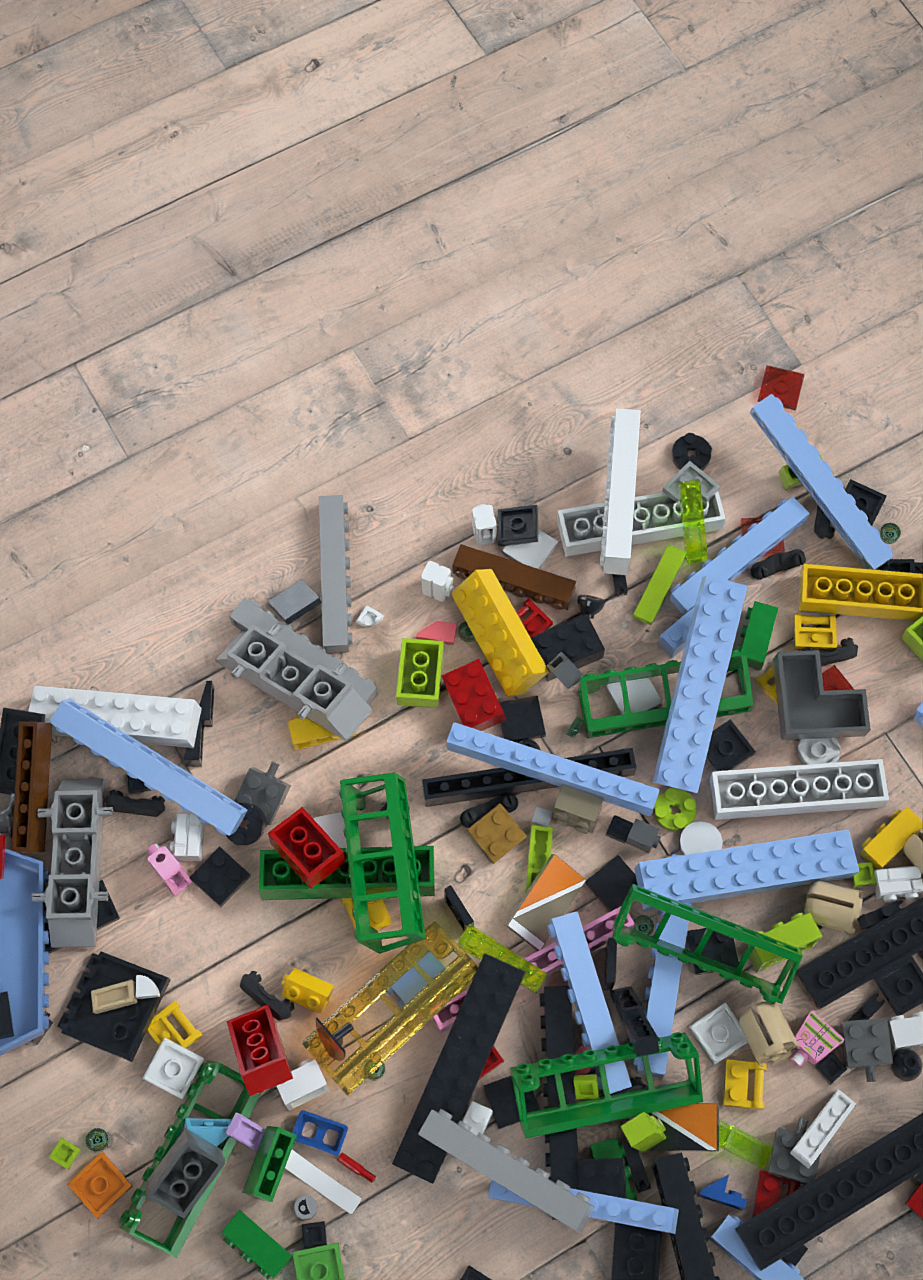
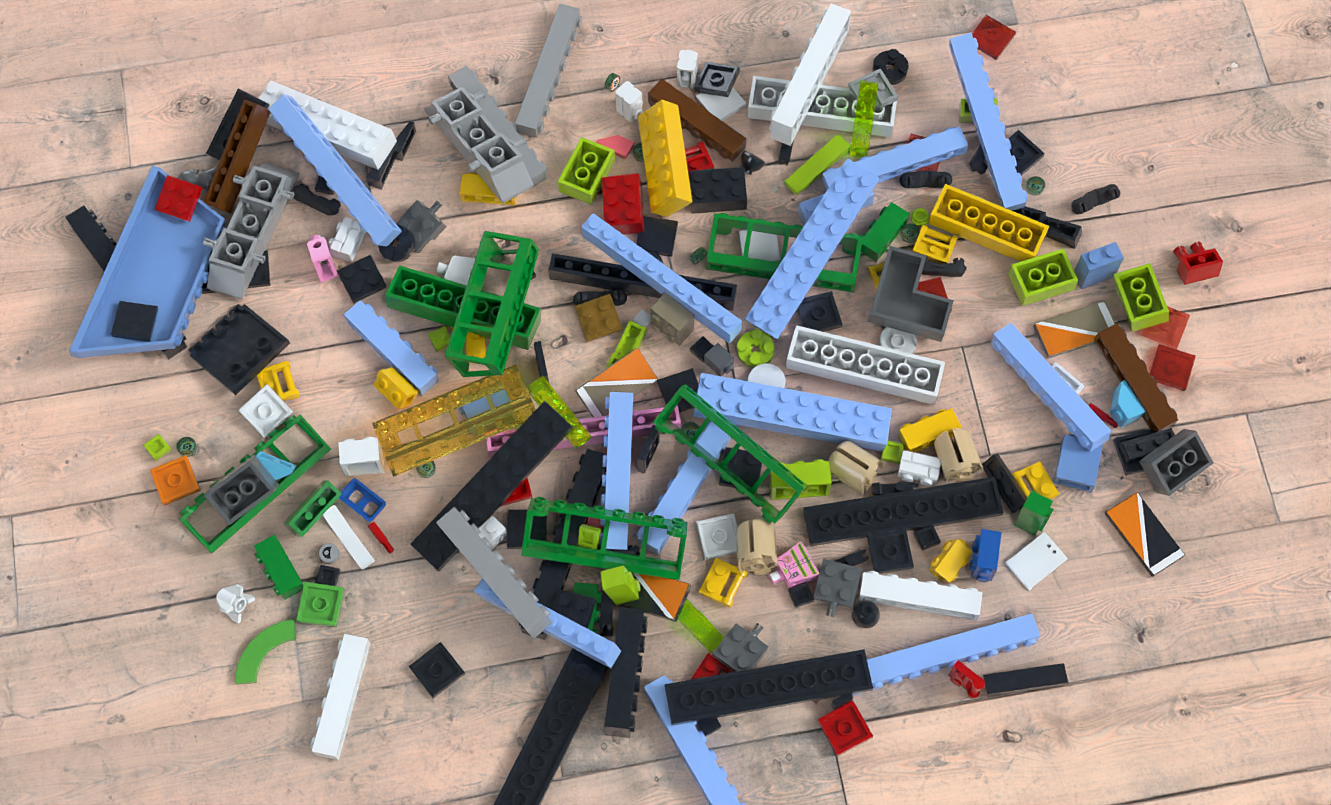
camera: 20 degrees right, 0 degrees up
(113, 996) = (240, 340): tan tile -> none
(146, 988) = (267, 341): white tile -> none
(245, 1131) = (302, 477): lavender tile -> none
(252, 987) = (353, 371): black piece -> none
(259, 1050) = (336, 416): red brick -> none
(284, 945) = (391, 347): none -> light blue brick
(295, 601) = (506, 82): tile -> none
(306, 847) = (435, 273): red brick -> none
(333, 915) = (439, 338): none -> lime plate
(333, 1042) = (398, 429): shield -> none
(369, 617) = (563, 115): white tile -> none
(407, 564) = (612, 82): none -> clear green tile
(565, 670) = (705, 205): dark grey brick -> none
(635, 1022) = (649, 498): black slope -> none
(716, 1193) = (663, 656): blue slope -> none
(783, 627) = (909, 233): none -> clear green tile
(787, 606) = (920, 217): none -> lime plate
(823, 1128) = (771, 636): white tile -> none

